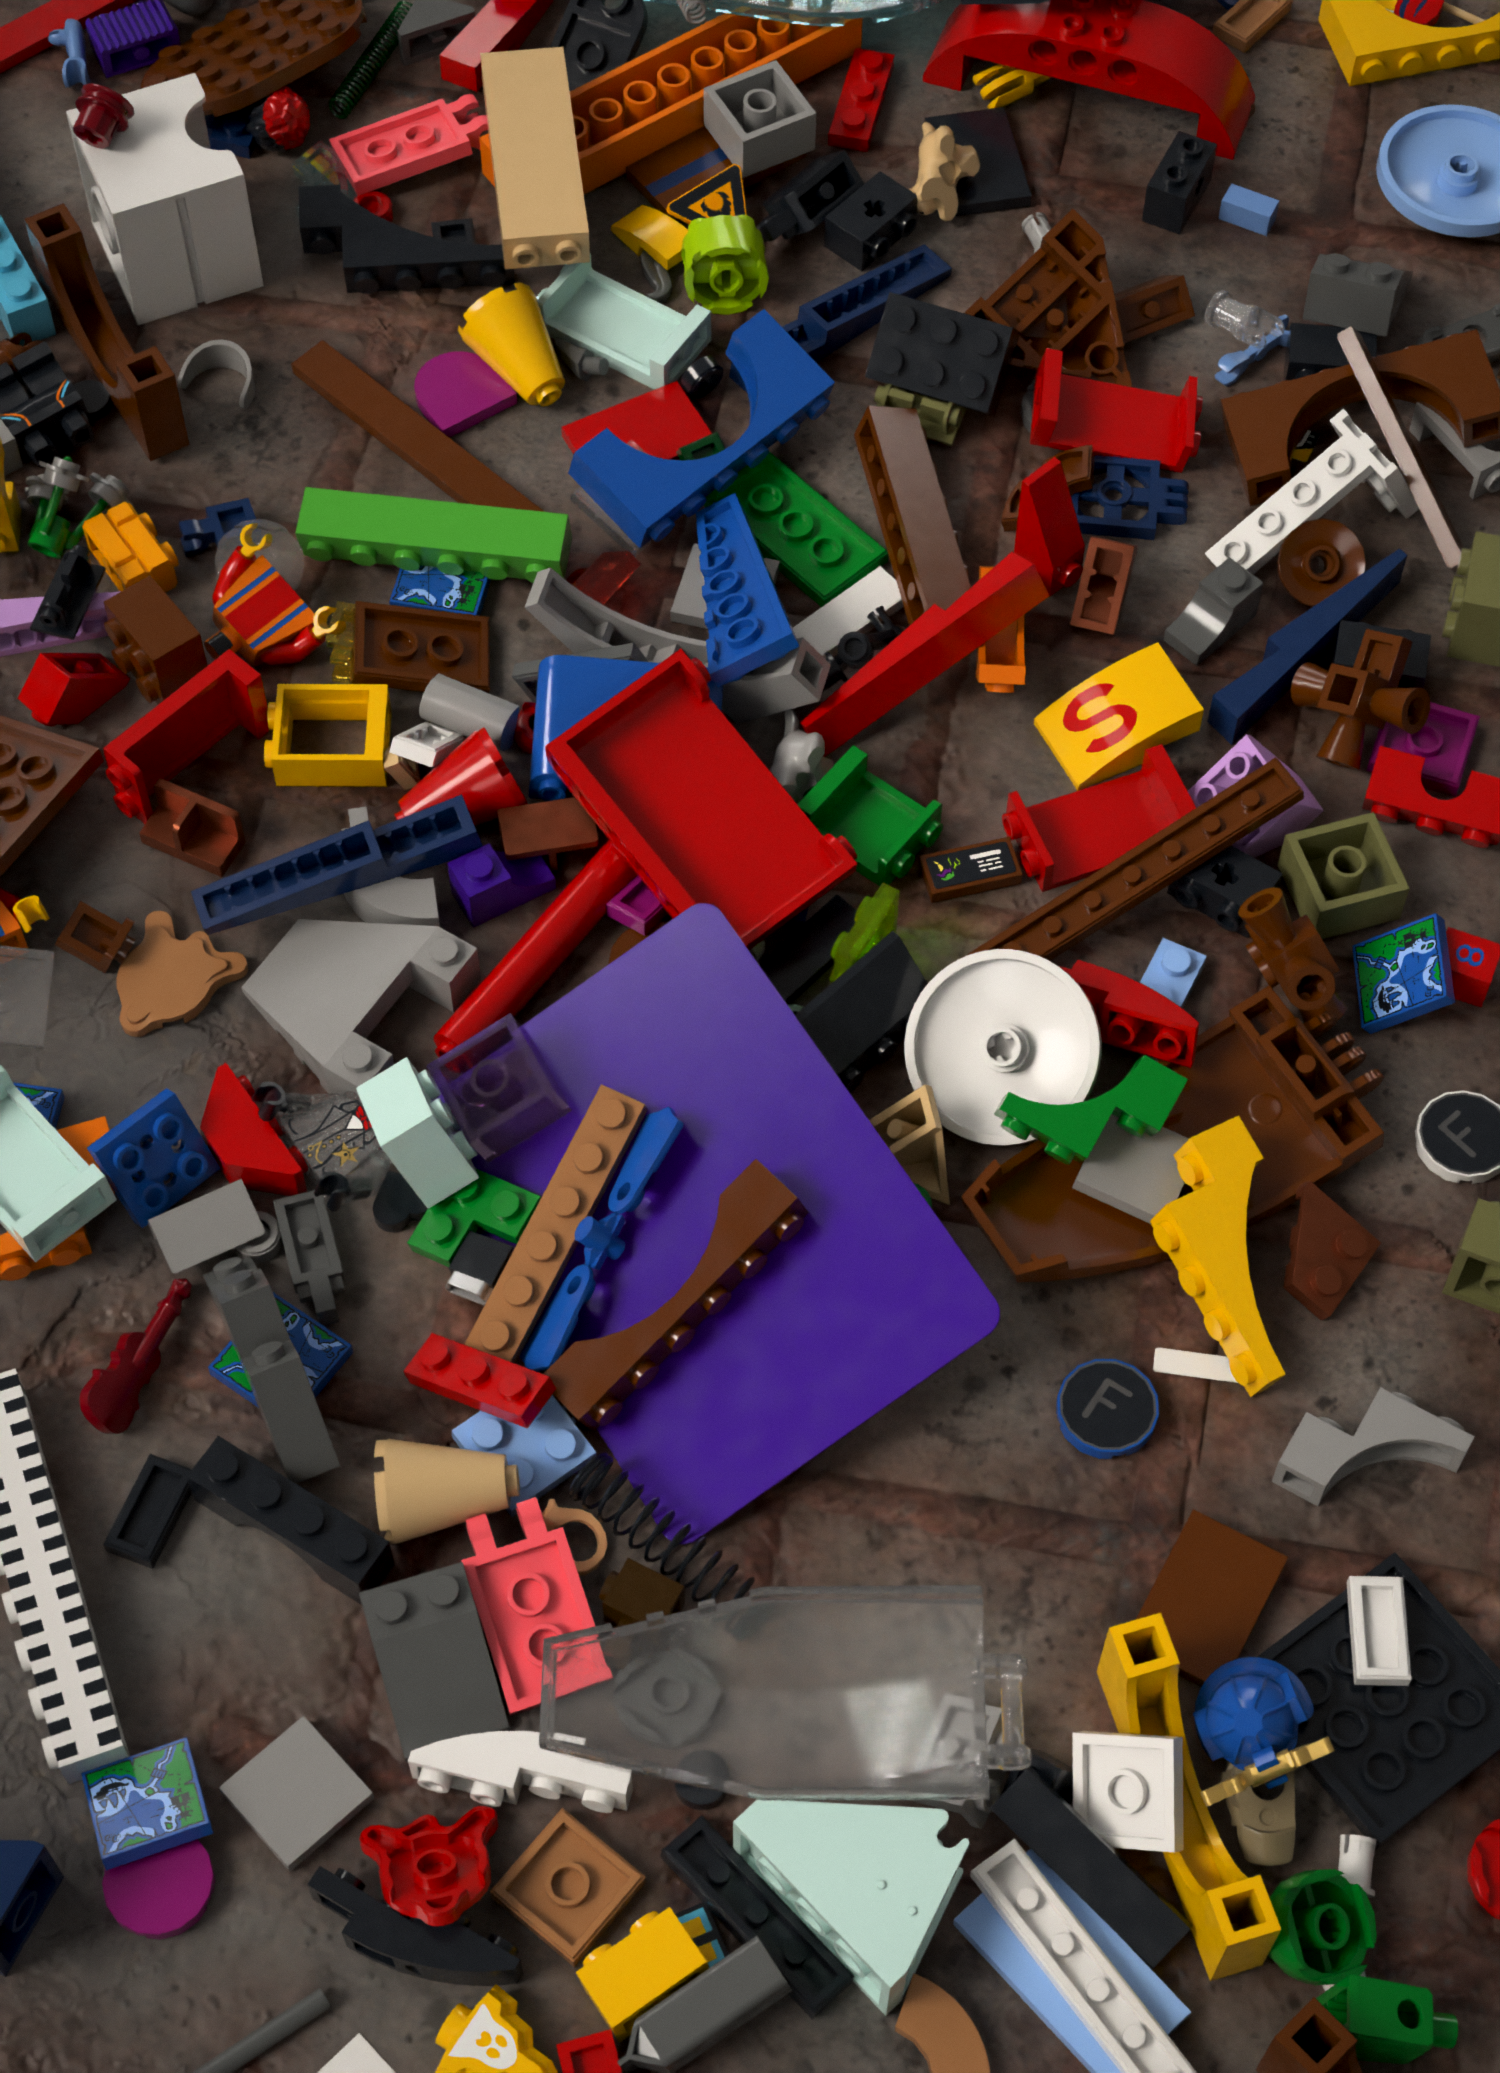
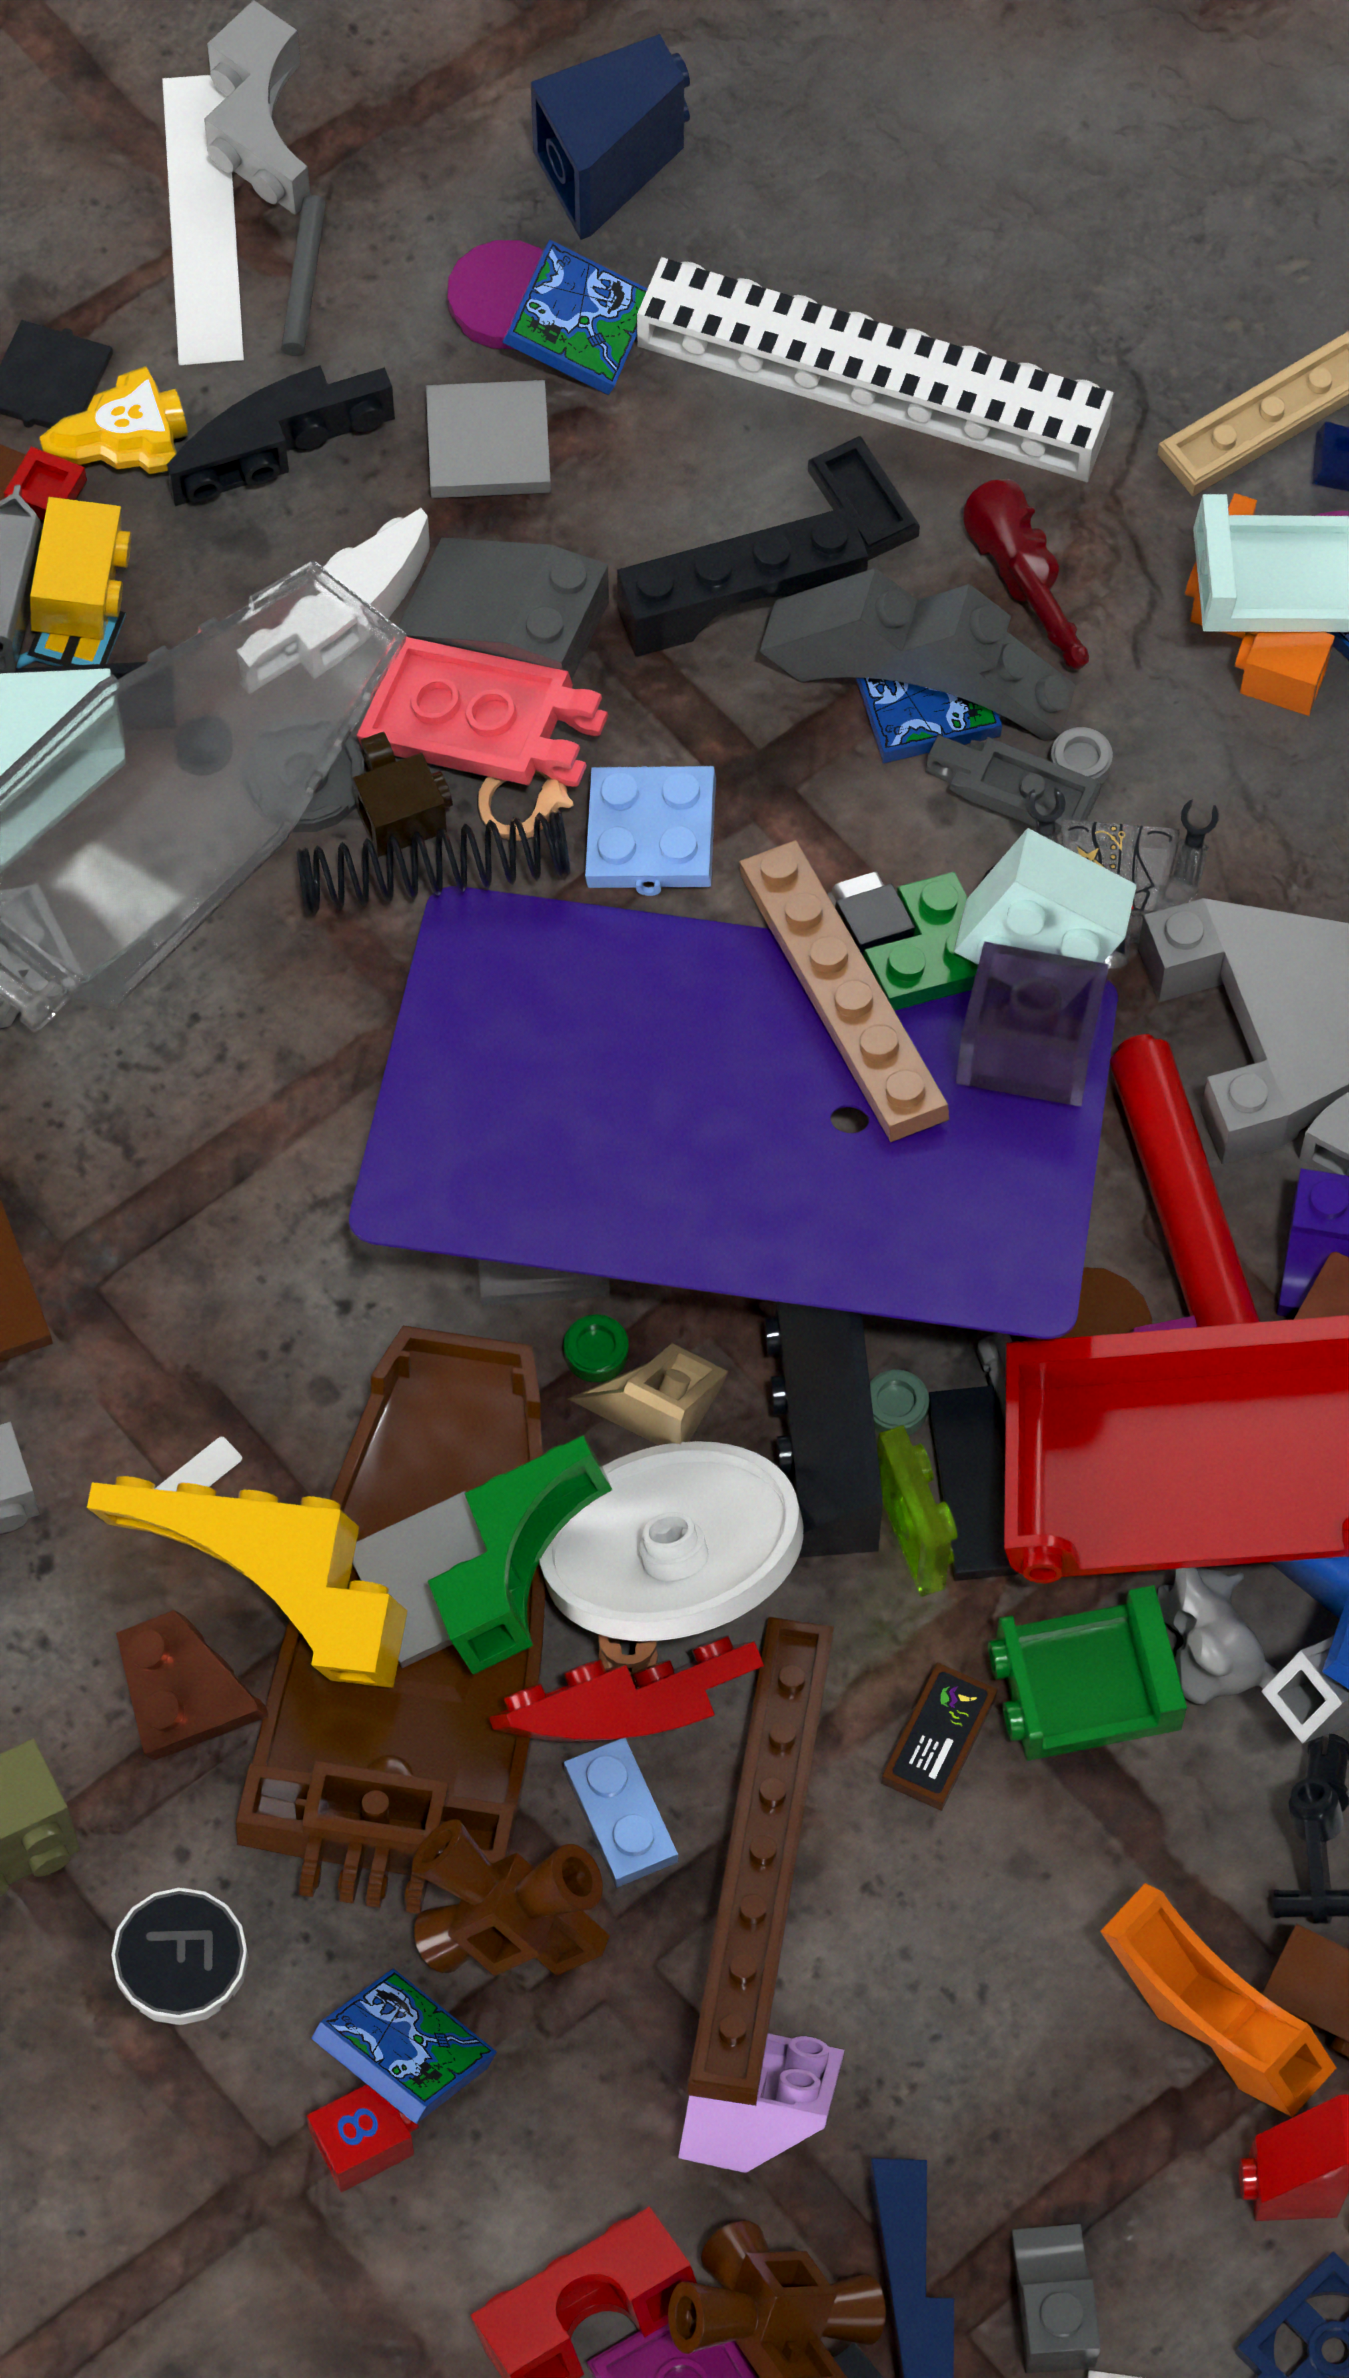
camera: 130 degrees right, 5 degrees up
(145, 1146) = (1242, 697): blue plate -> none
(206, 1227) = (1125, 710): light grey panel -> none
(247, 1144) = (1248, 815): red slope -> none
(433, 1868) = (315, 474): red tile -> none
(438, 1487) = (660, 694): tan cone -> none
(480, 1380) = (740, 817): red plate -> none
(568, 1887) = (205, 573): medium nougat tile -> none
(601, 1239) = (786, 1007): blue piece -> none
(750, 1222) = (667, 1103): reddish brown arch -> none
(927, 650) = (1245, 1886): red slope -> none
(1098, 824) = (882, 1918): red panel -> none
(1103, 584) = (1203, 2204): copper arch -> none
(1107, 1408) = (220, 1352): black tile -> none
(1119, 714) = (996, 2056): yellow slope -> none
(1223, 885) = (648, 1986): black brick -> none
(1343, 875) = (575, 2092): olive brick -> none

